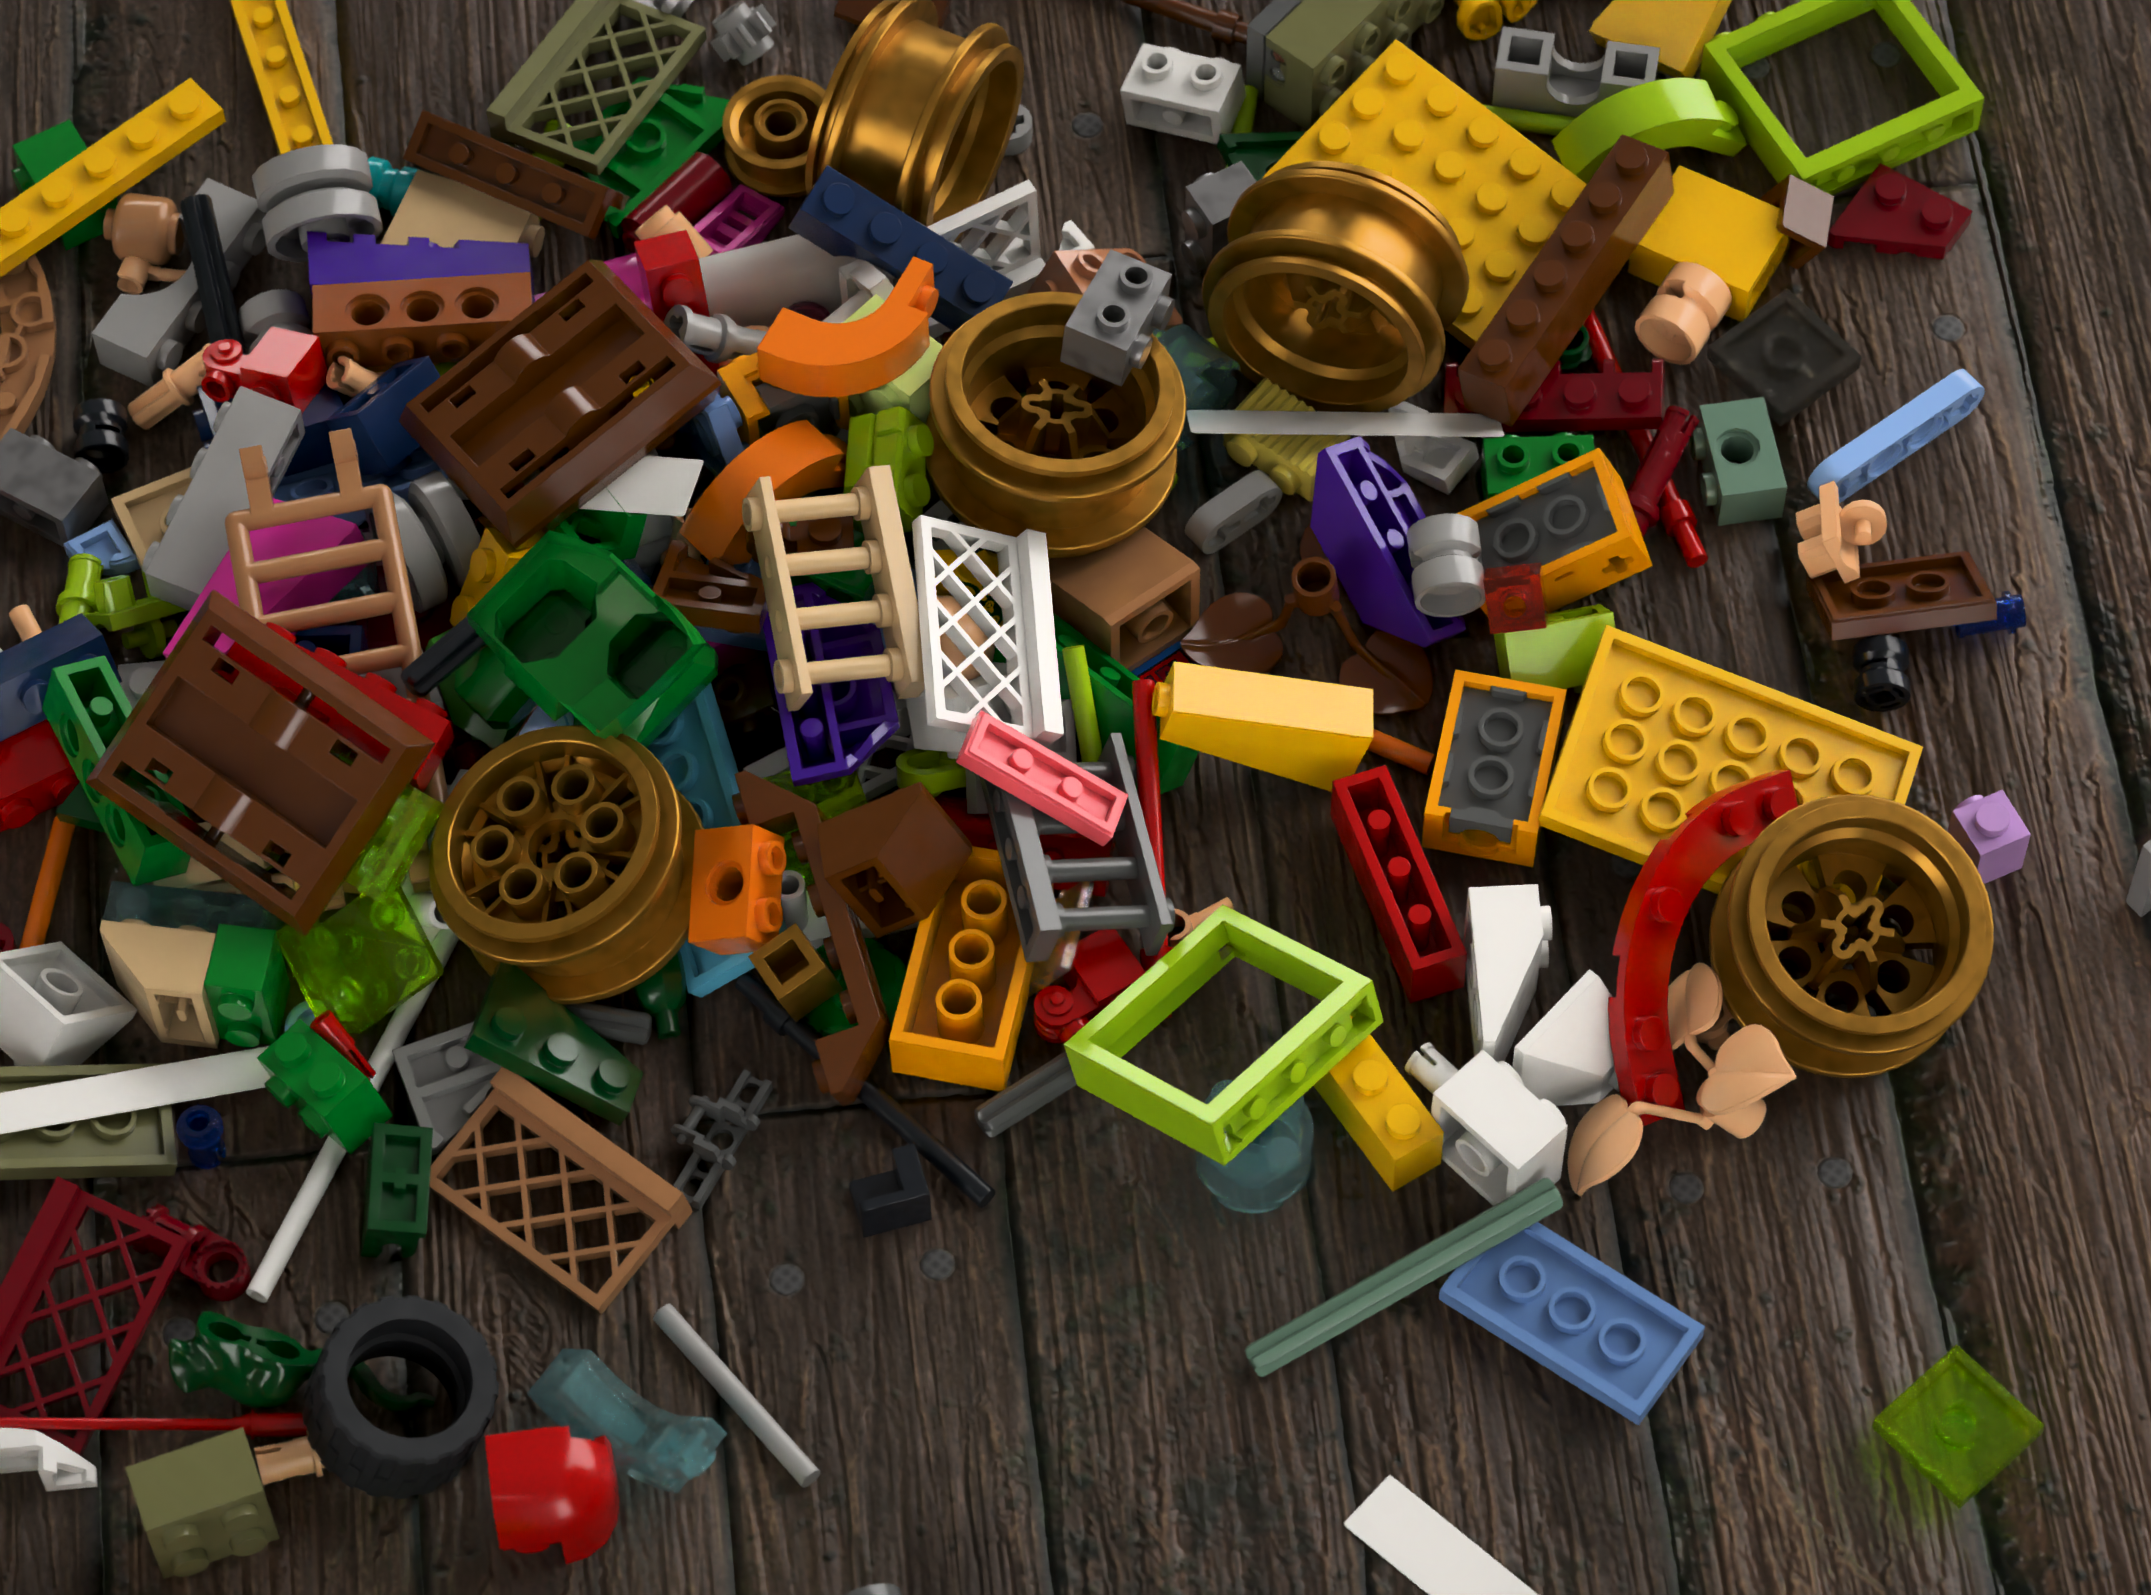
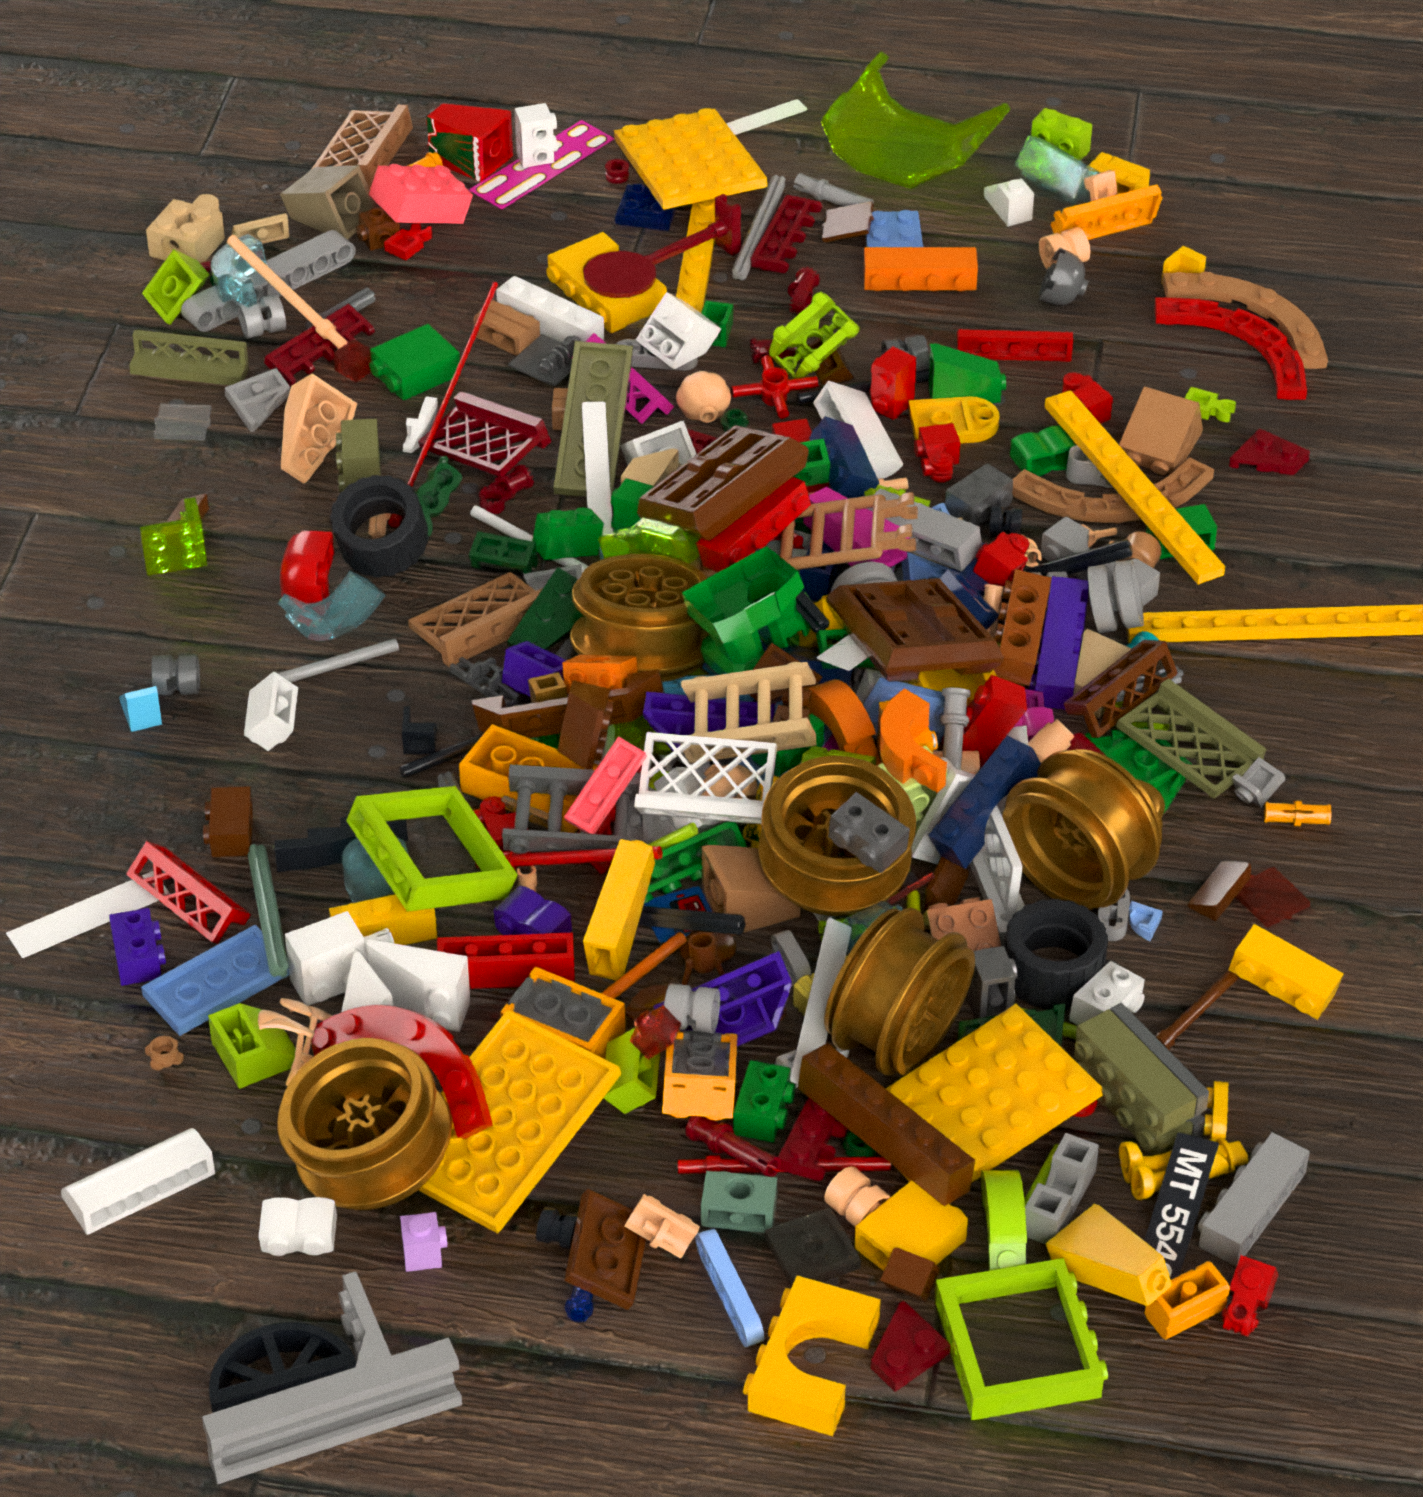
camera: 105 degrees right, 15 degrees down
(93, 312) = (1097, 534): none -> light nougat hand
(201, 1132) = (563, 491): clear blue pin -> none
(336, 1035) = (586, 541): red pin -> none
(707, 1031) = (527, 662): none -> dark purple brick
(743, 33) = (1212, 812): light grey gear -> none
(931, 1436) = (271, 711): none -> white brick
(1115, 115) = (1059, 926): none -> black tyre
(1193, 1213) = (323, 846): none -> black slope
(1211, 1418) = (229, 821): none -> reddish brown brick
(1213, 642) = (692, 920): none -> black axle
(1283, 879) = (529, 913): none -> dark purple brick
(1372, 1427) = (195, 884): none -> fence
(1550, 1462) = (136, 946): none -> dark purple brick
(1702, 1199) = (247, 1050): none -> lime slope
(1755, 1326) = (163, 1052): none -> medium nougat plate
(1908, 338) = (808, 1312): none -> yellow arch
(1958, 1426) = (68, 1125): clear neon green plate -> none
(2020, 1280) = (139, 1180): none -> white brick
(2025, 1021) = (297, 1226): none -> white brick

